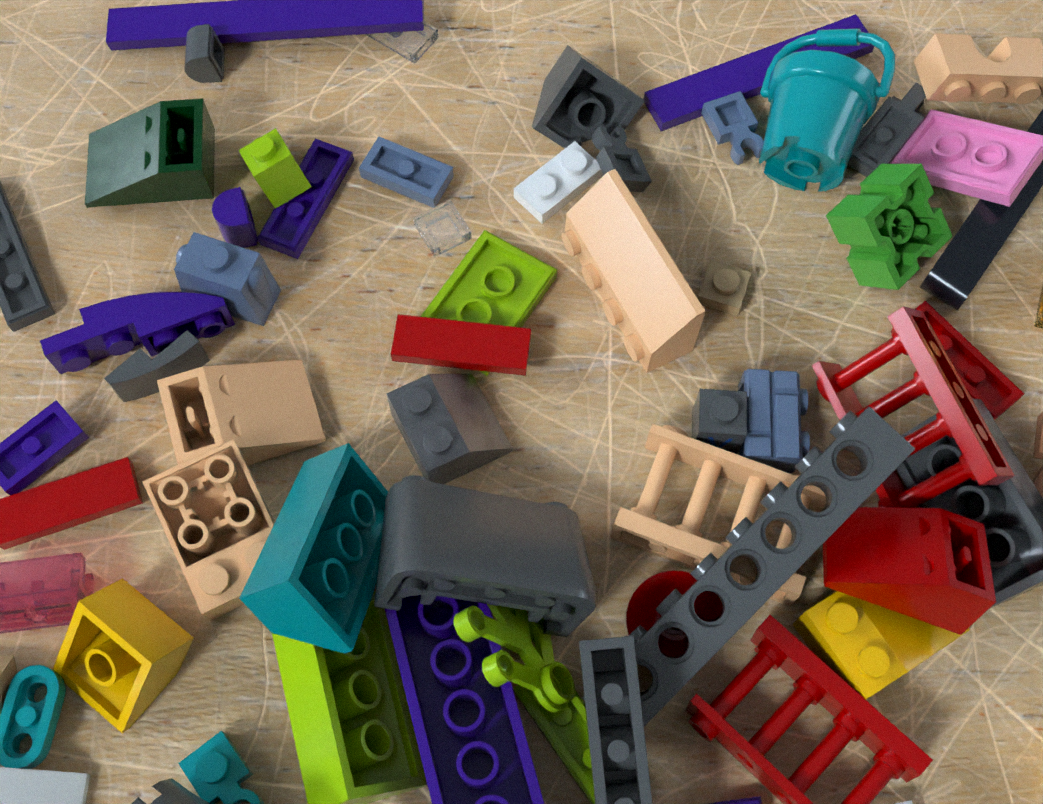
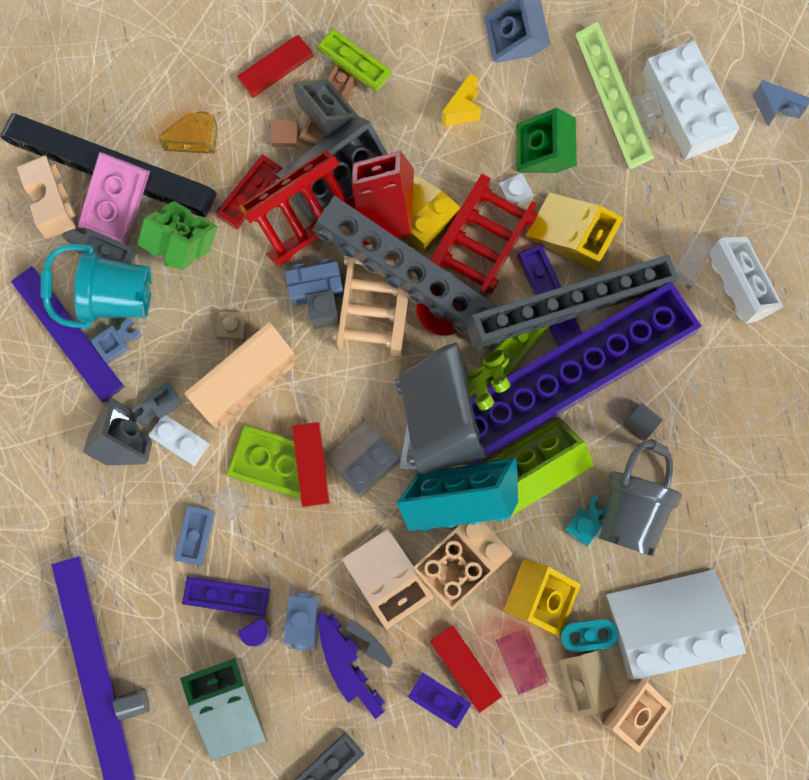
camera: 100 degrees left, 10 degrees up
(274, 168) = (211, 621): lime slope -> none

